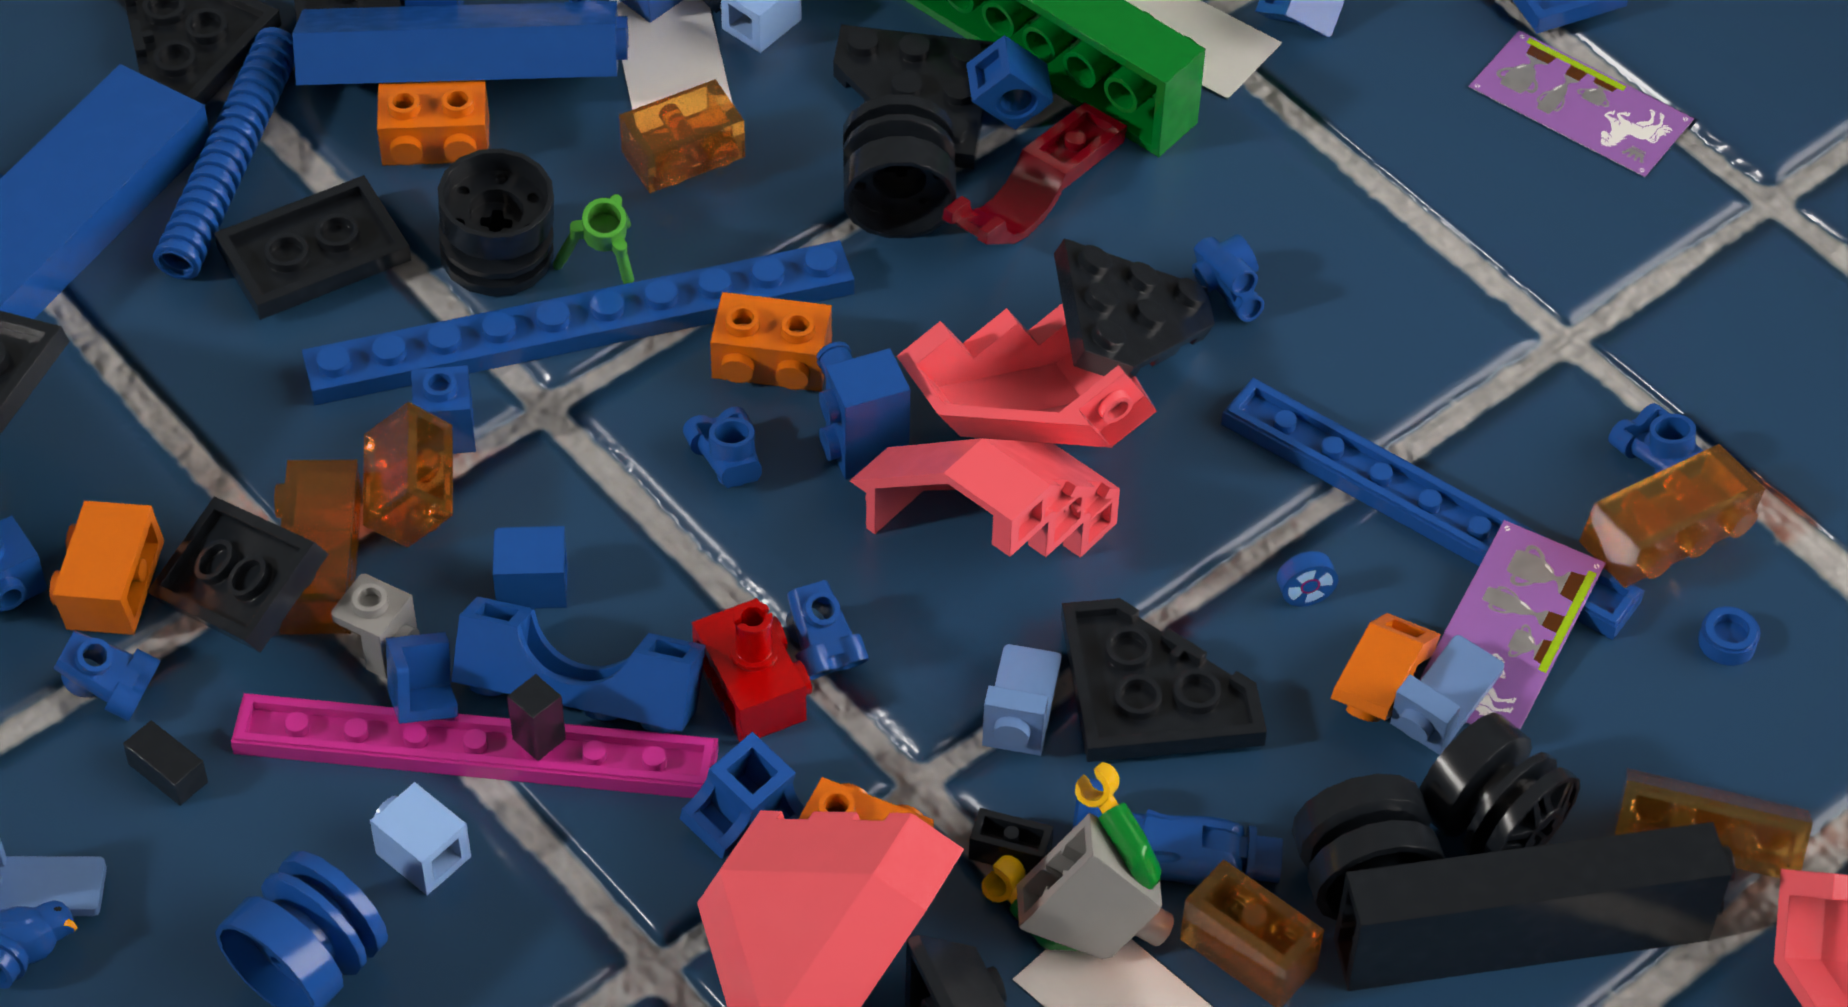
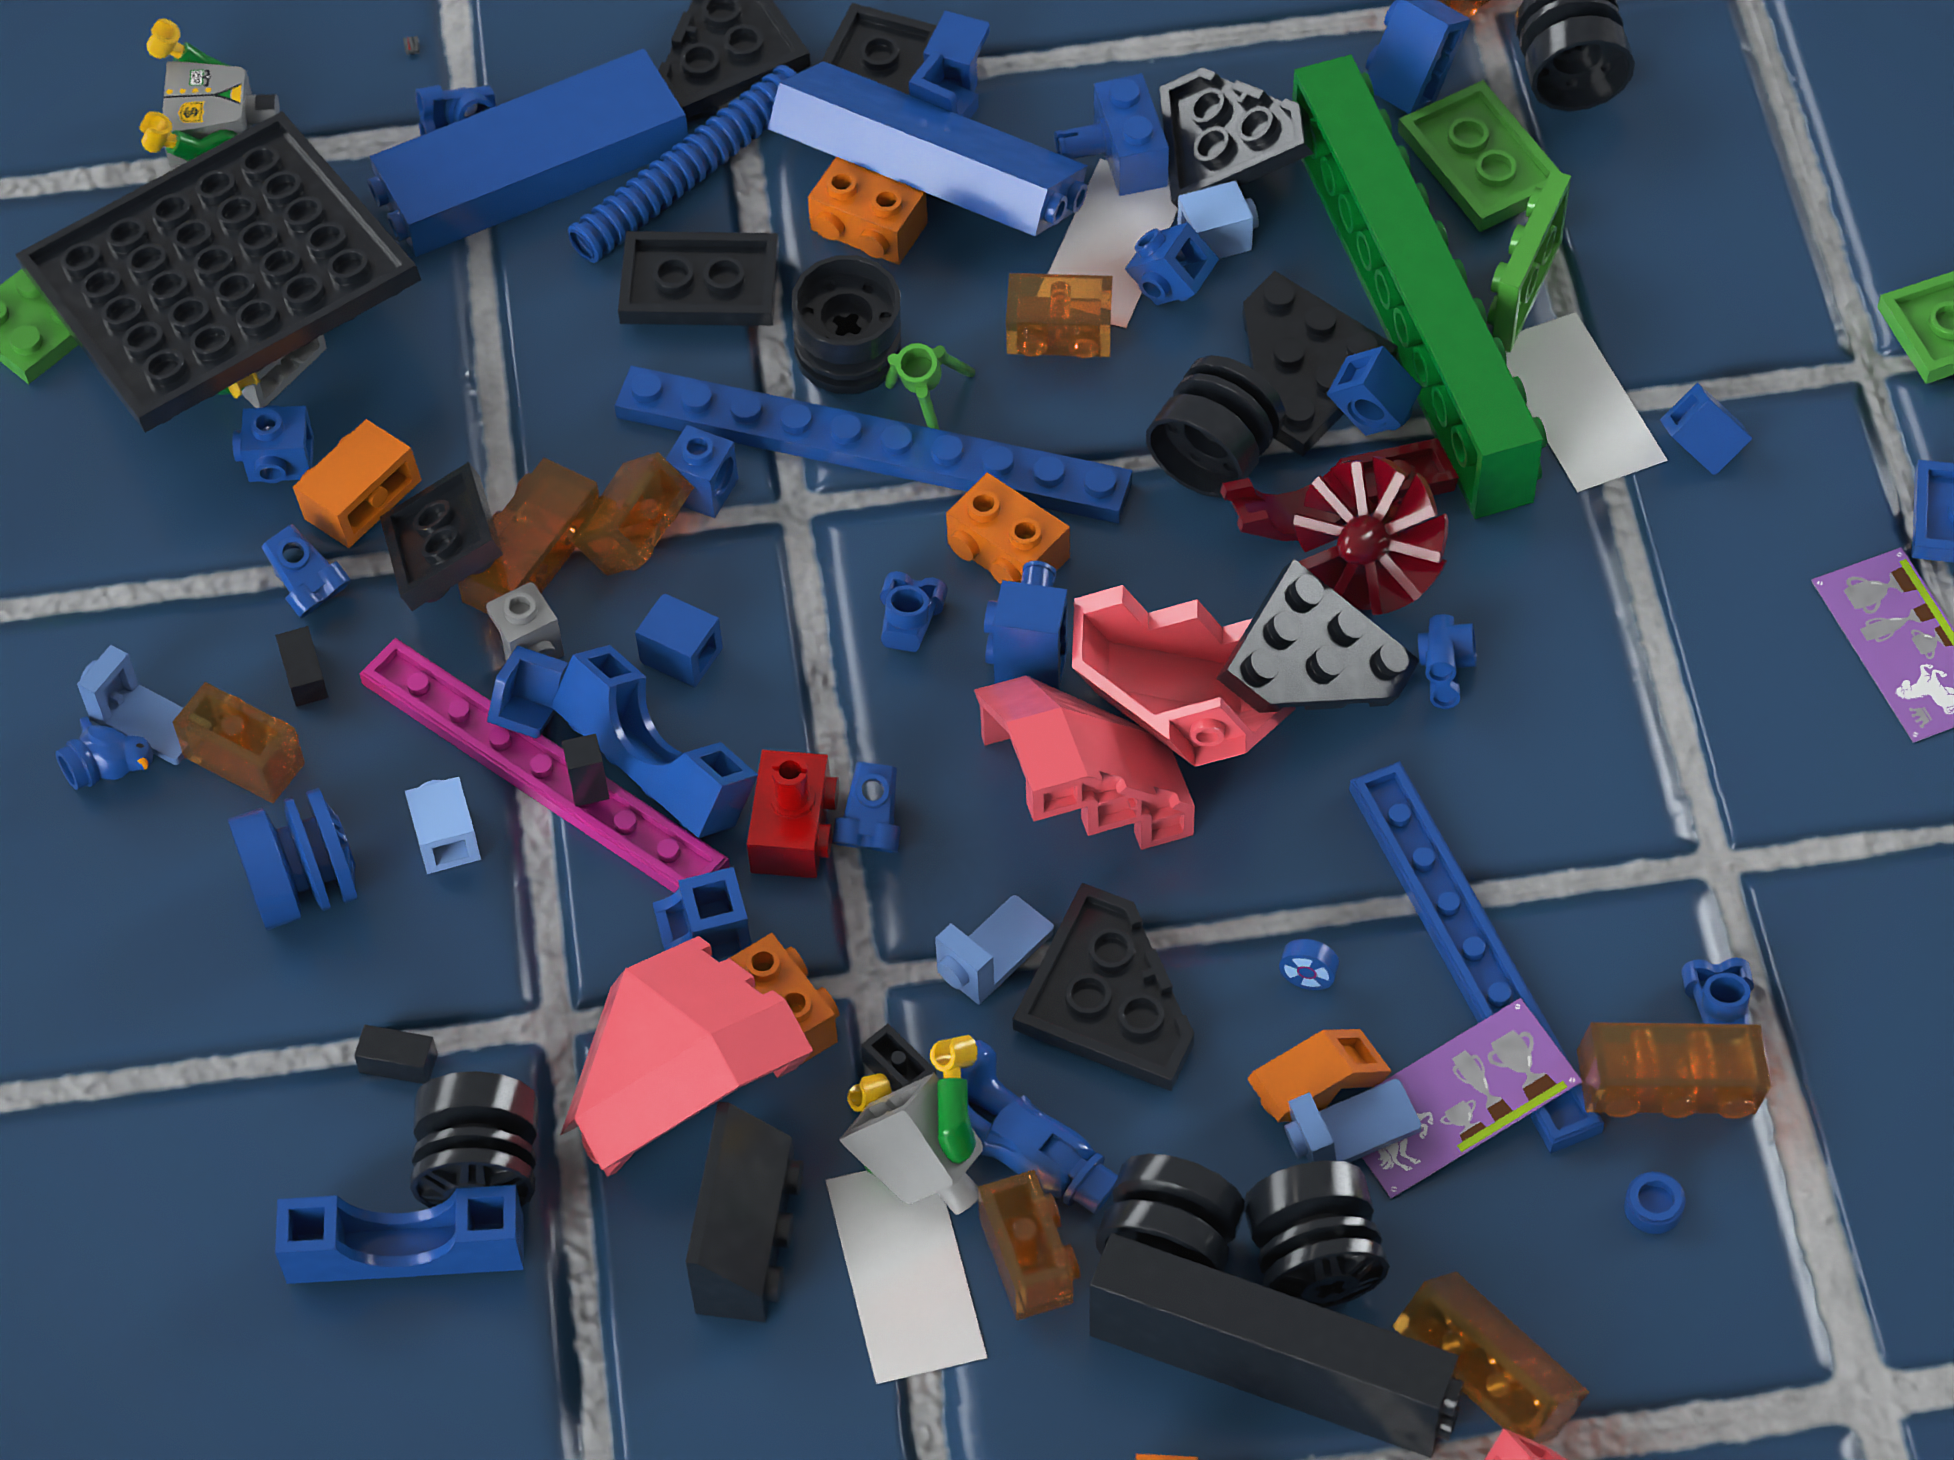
camera: 35 degrees right, 5 degrees up
(161, 857) = (239, 742): none -> clear orange brick
(753, 52) = (1171, 263): none -> blue brick
(1139, 197) = (1381, 551): none -> dark red piece

